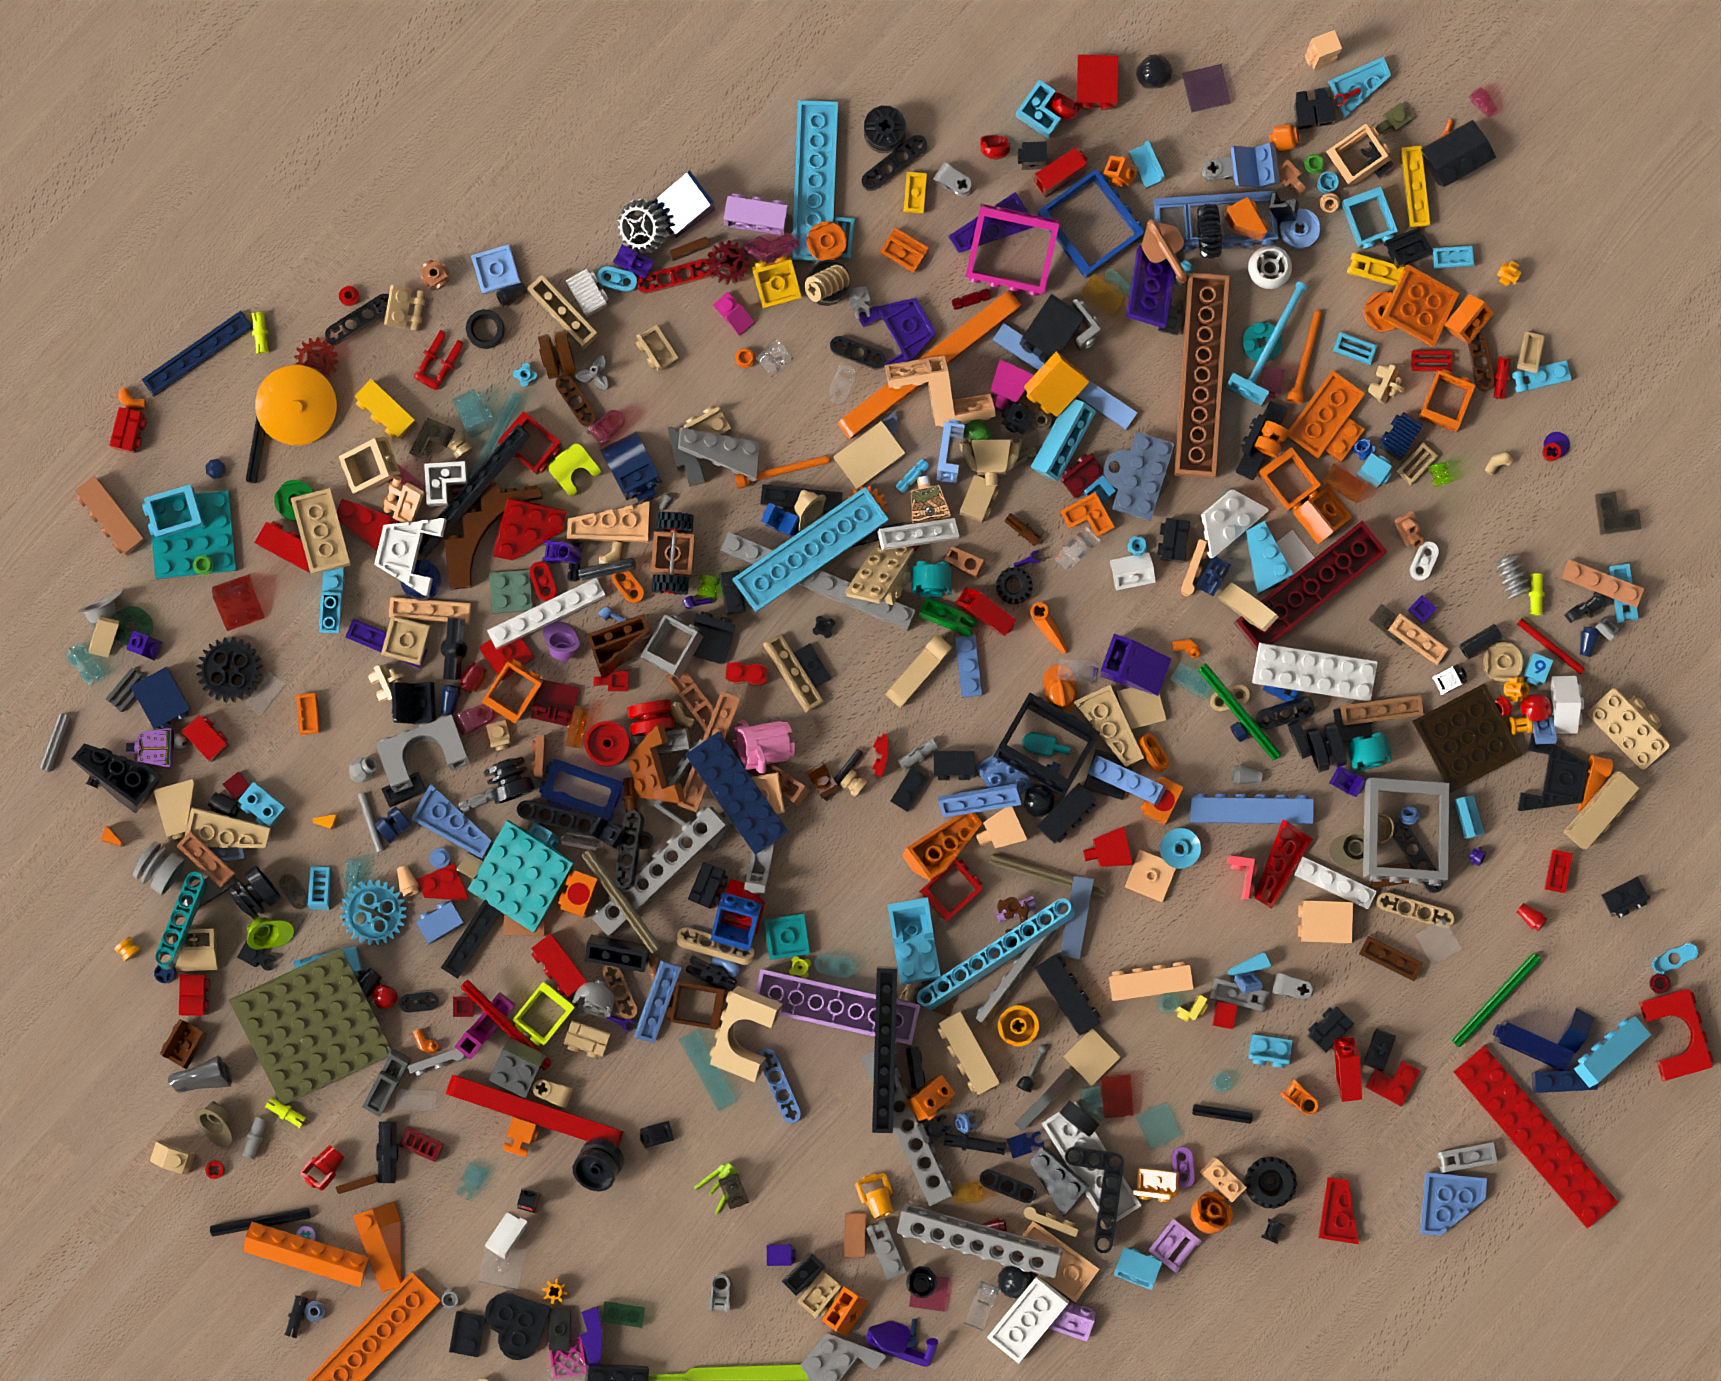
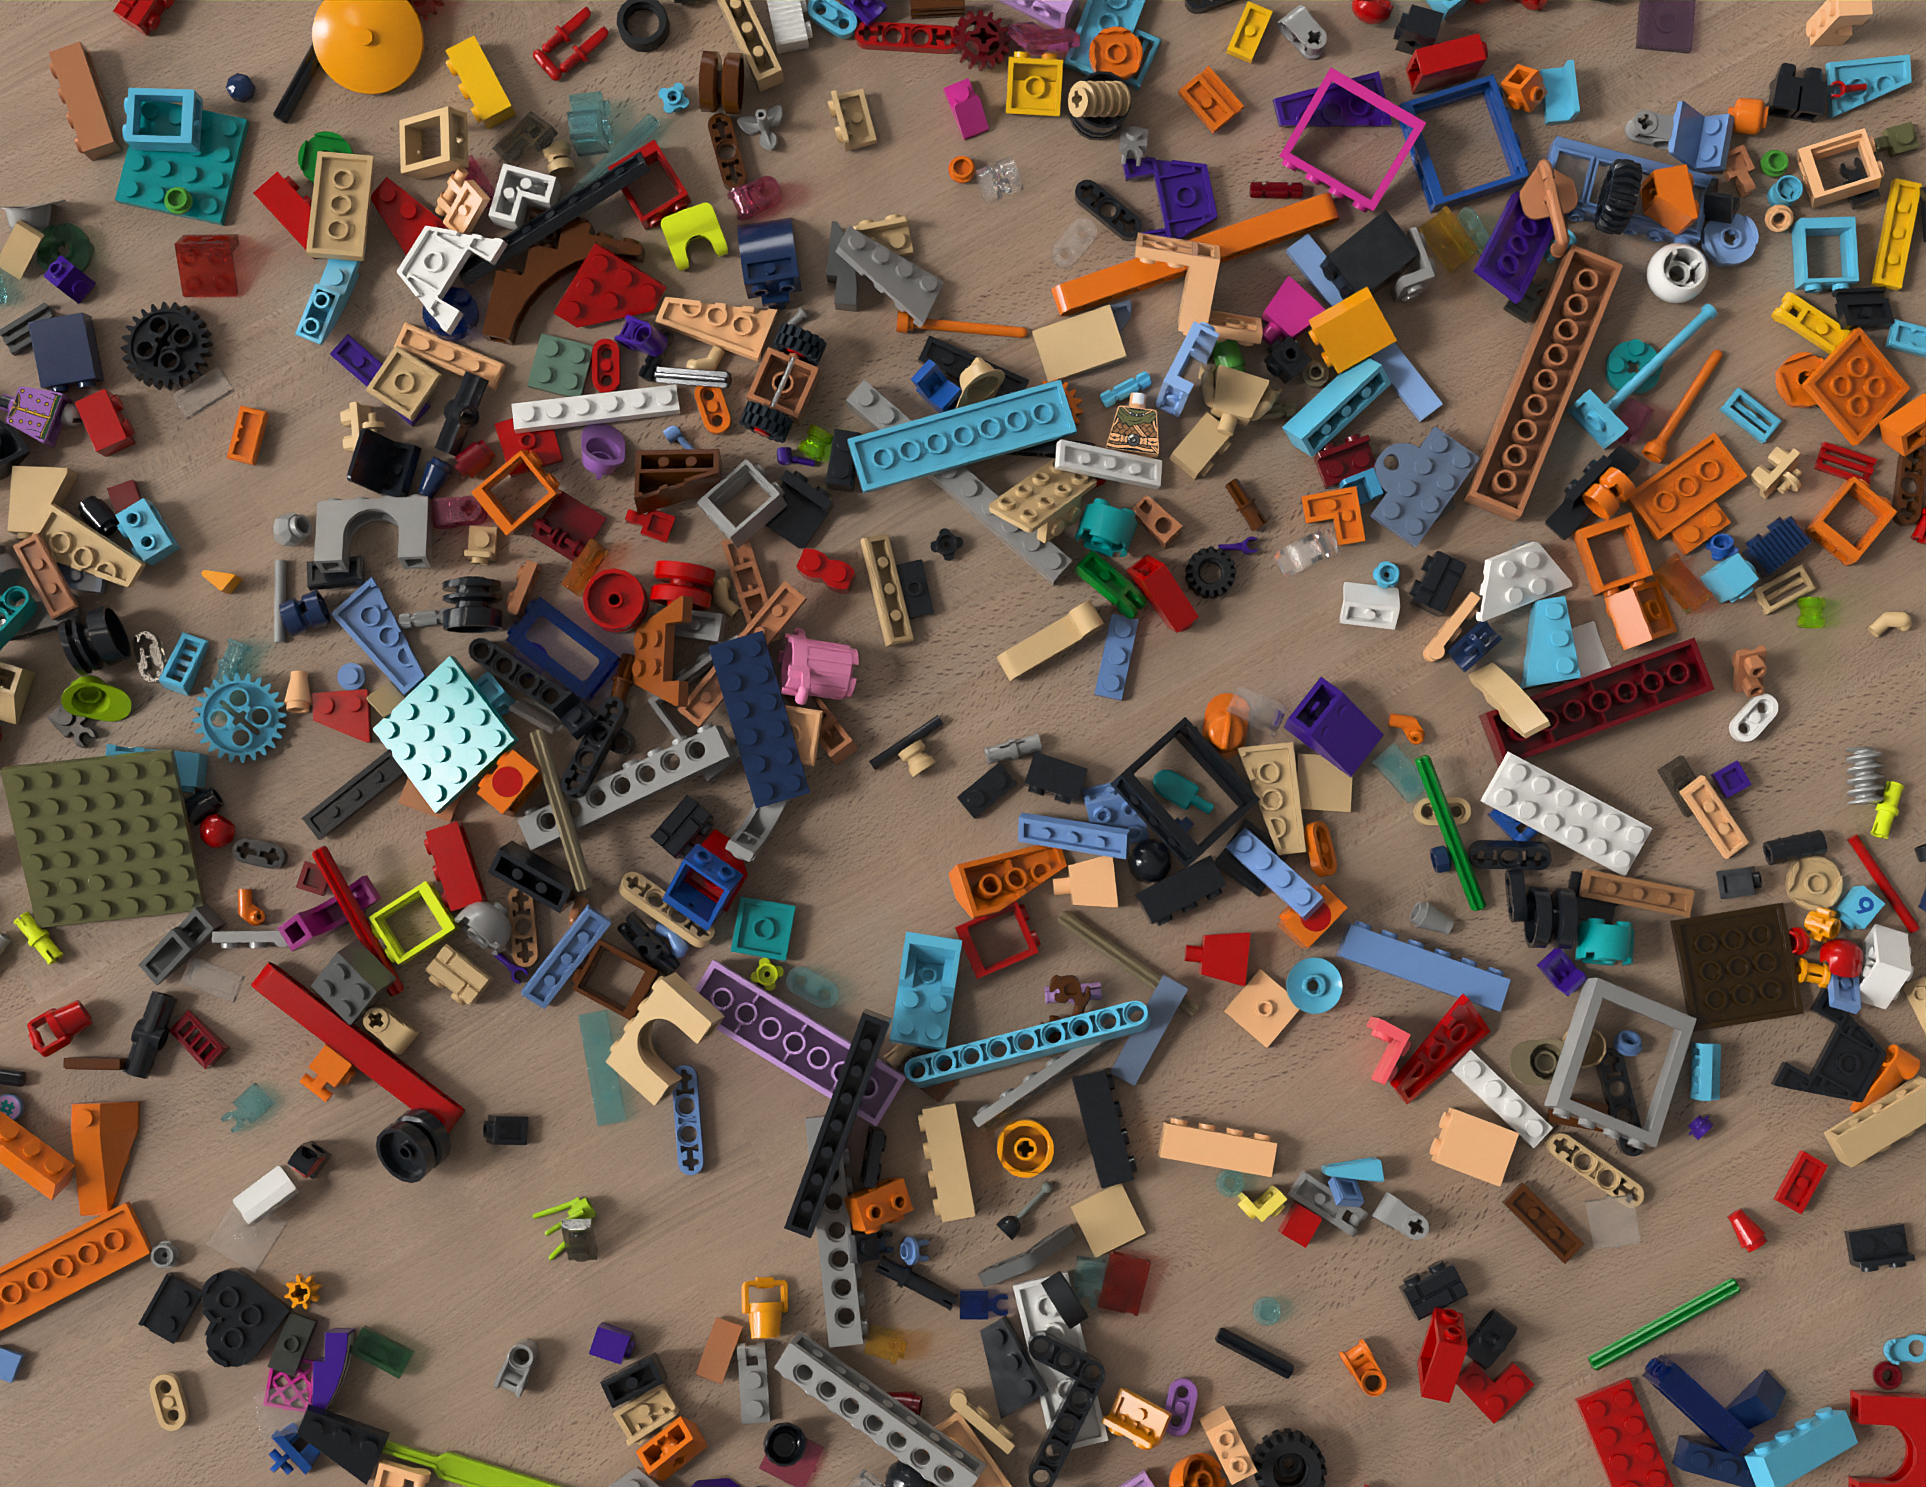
camera: 15 degrees right, 0 degrees up
(440, 921) = (322, 759): medium blue brick -> none
(822, 780) = (878, 740): reddish brown bracket -> none
(881, 746) = (968, 726): red slope -> none
(1018, 1186) = (945, 1367): black beam -> none
(1048, 627) = (1236, 640): orange piece -> none
(1158, 1125) = (1165, 1339): clear light blue piece -> none
(1270, 1050) = (1344, 1290): medium azure bracket -> none

